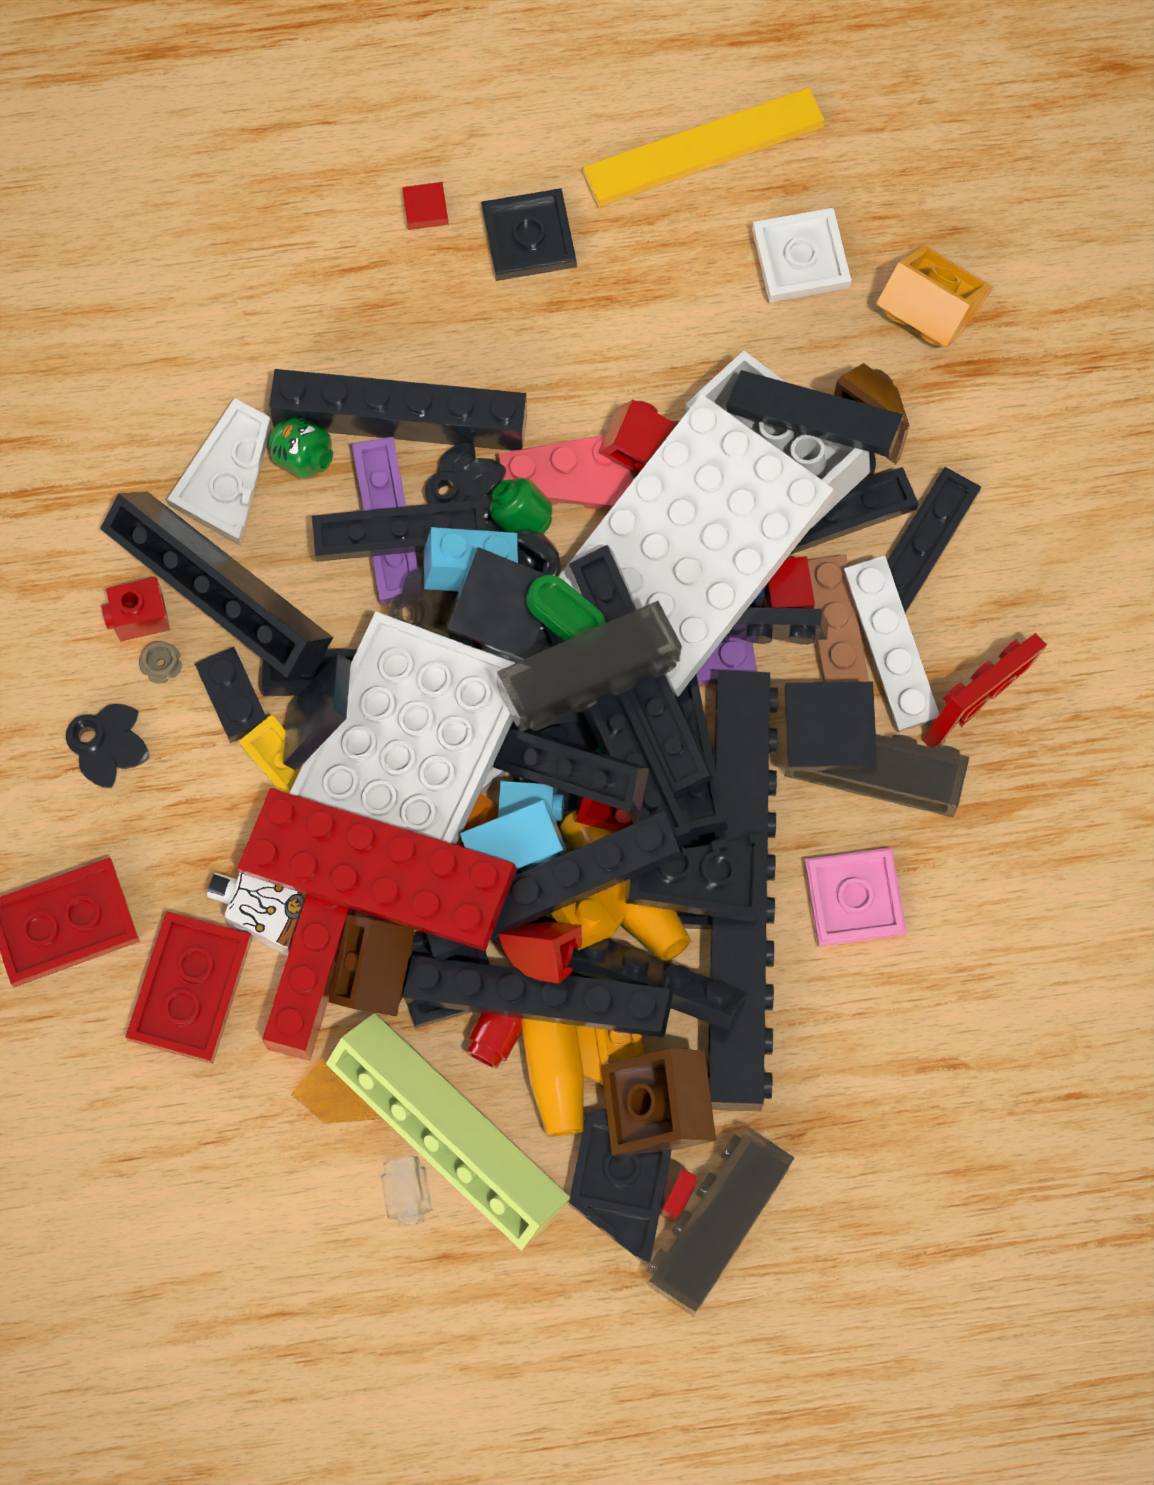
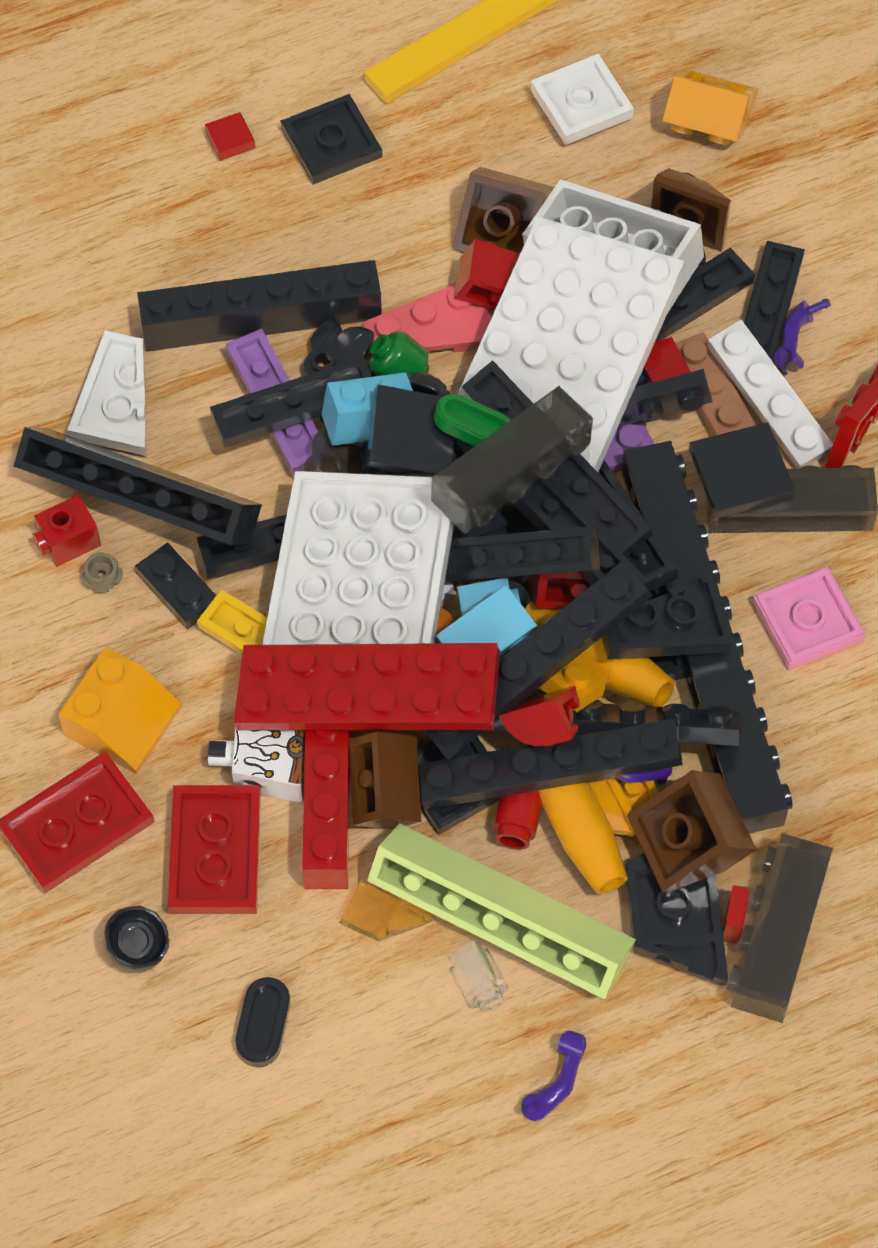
camera: 15 degrees left, 10 degrees down
(85, 1062) = (135, 939): none -> black hair
(112, 747) = (75, 652): black plate -> none
(136, 817) = (119, 710): none -> light orange slope
(187, 1177) = (263, 1022): none -> black tile
(301, 447) = (179, 358): green head -> none
(317, 712) = (267, 571): black tile -> none
(432, 1334) = (542, 1102): none -> dark purple piece
(674, 364) = (498, 209): none -> reddish brown slope
(815, 413) = (644, 209): black tile -> none
(949, 563) = (798, 318): none -> dark purple piece

